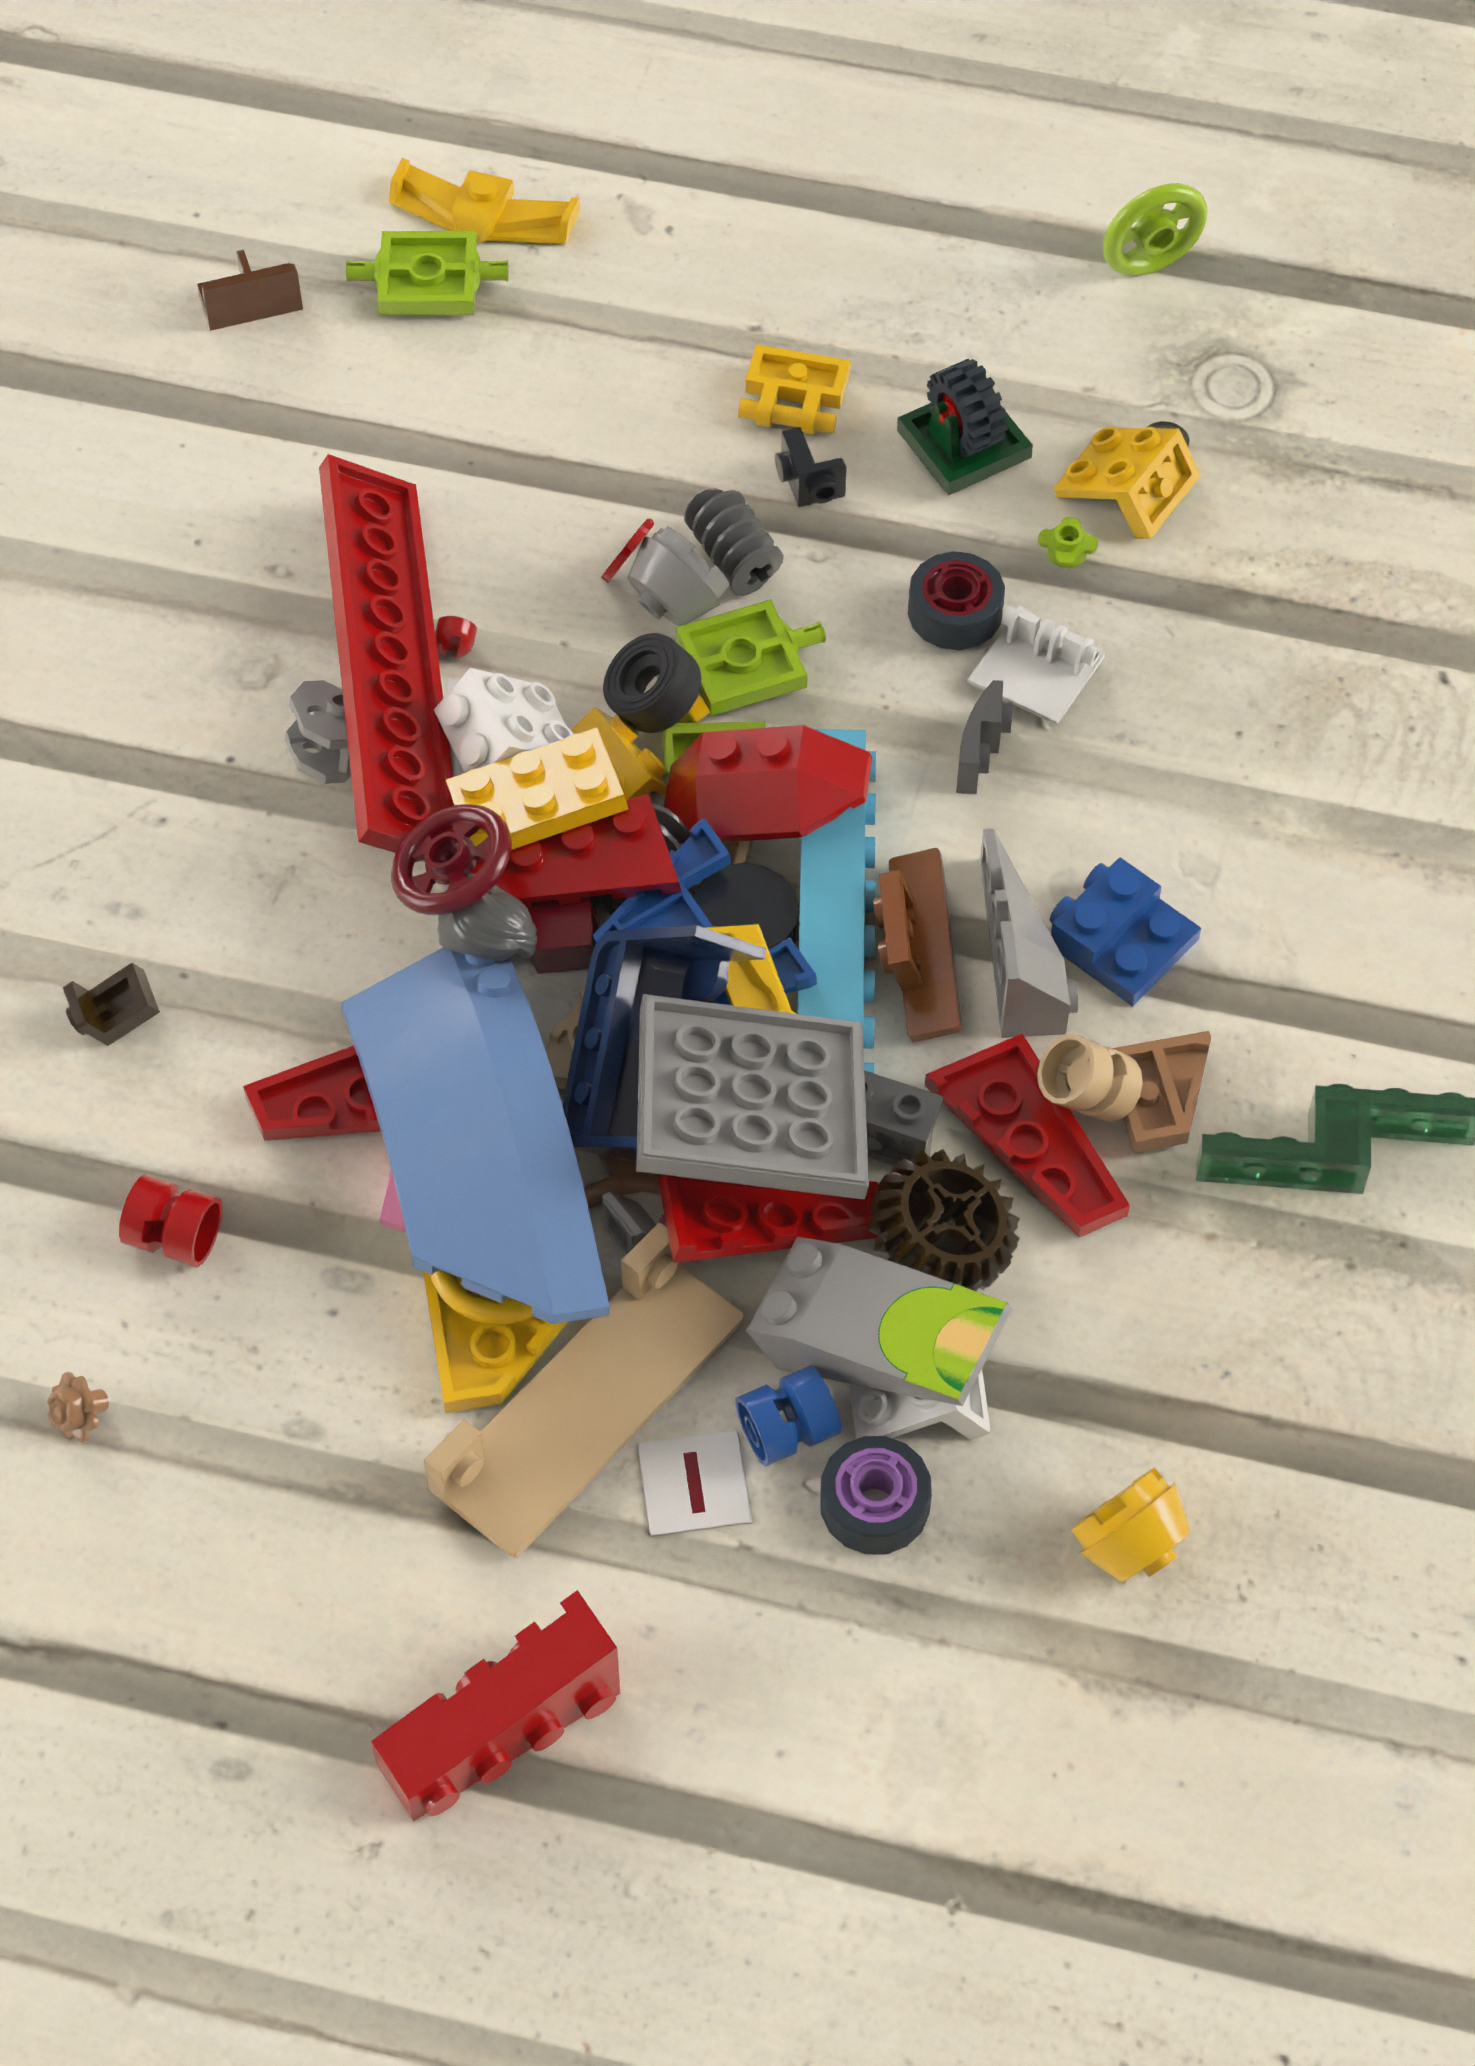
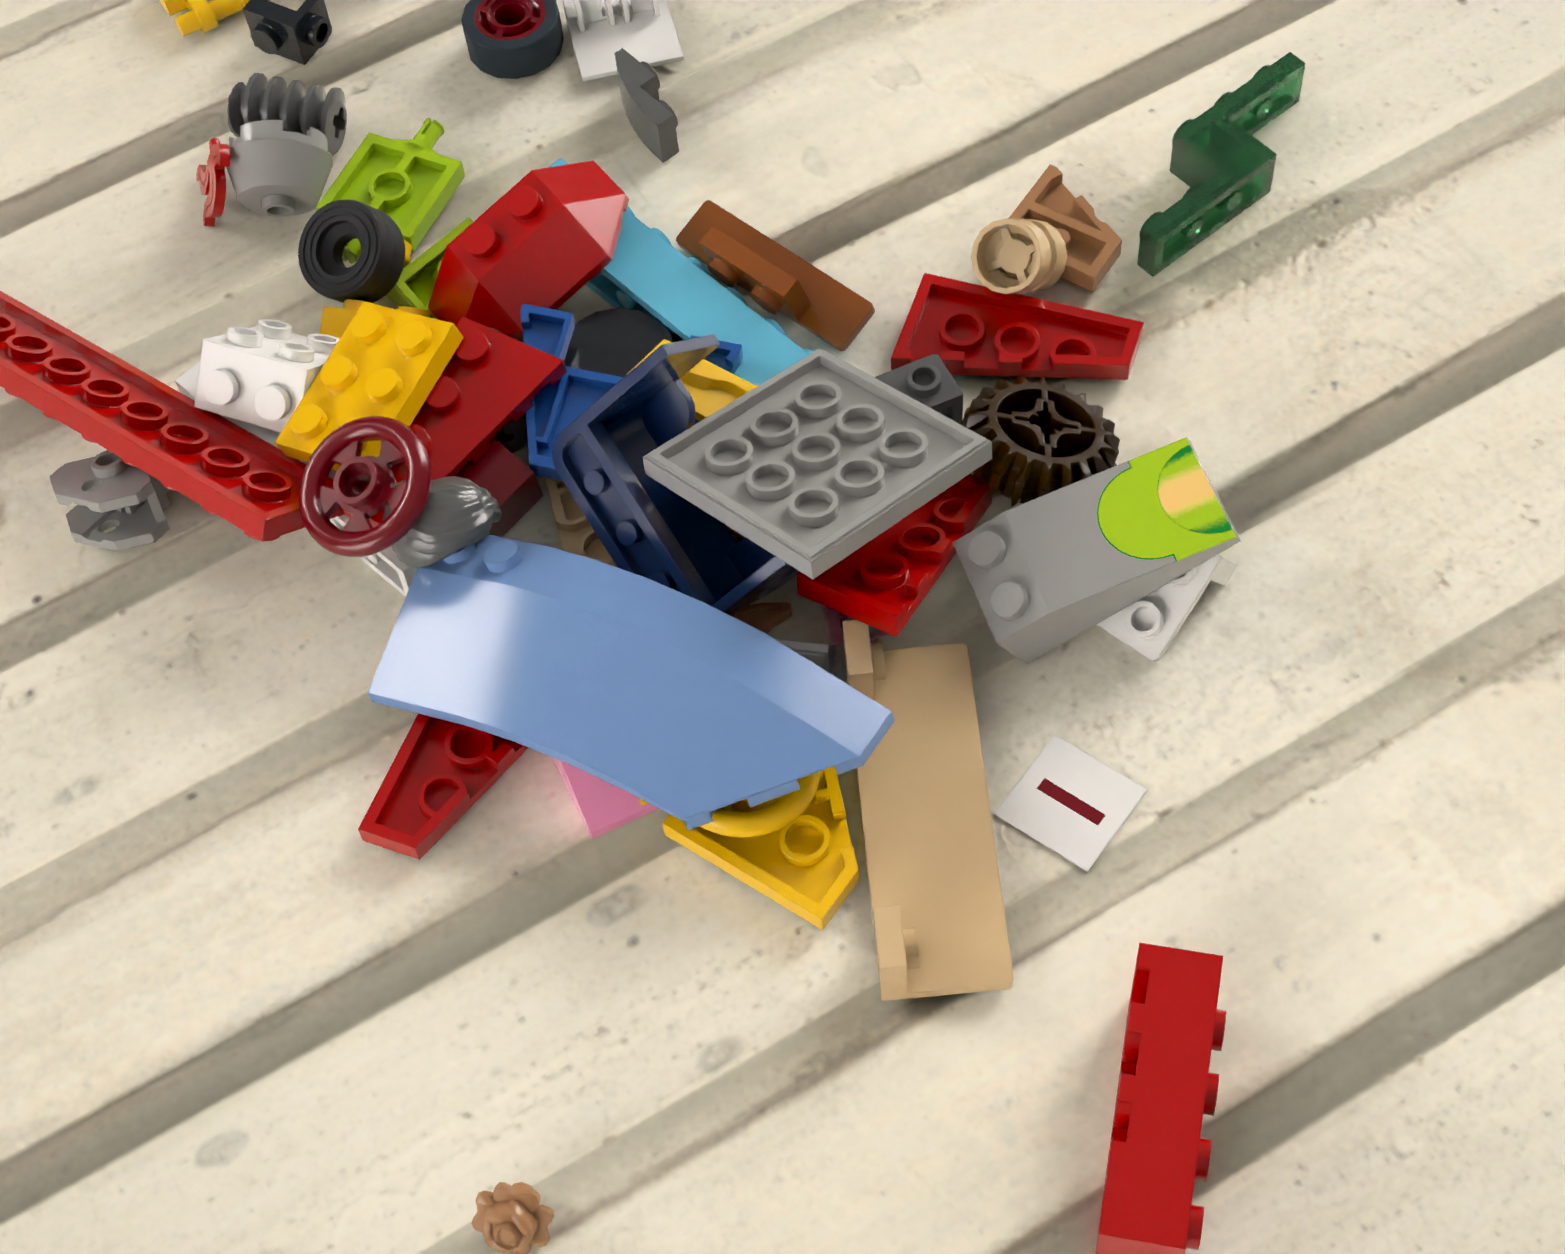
camera: 40 degrees left, 0 degrees up
(111, 1006) = (162, 867): dark brown bracket -> none
(177, 1222) = (421, 989): red wheel -> none
(455, 635) = (136, 349): red hinge -> none
(808, 1412) = (1093, 681): blue wheel -> none
(870, 1524) = (1213, 710): wheel -> none
(1025, 958) = (856, 222): light grey wedge -> none
(1122, 930) = (901, 154): blue plate -> none
(1135, 1528) = (1431, 528): yellow cone -> none

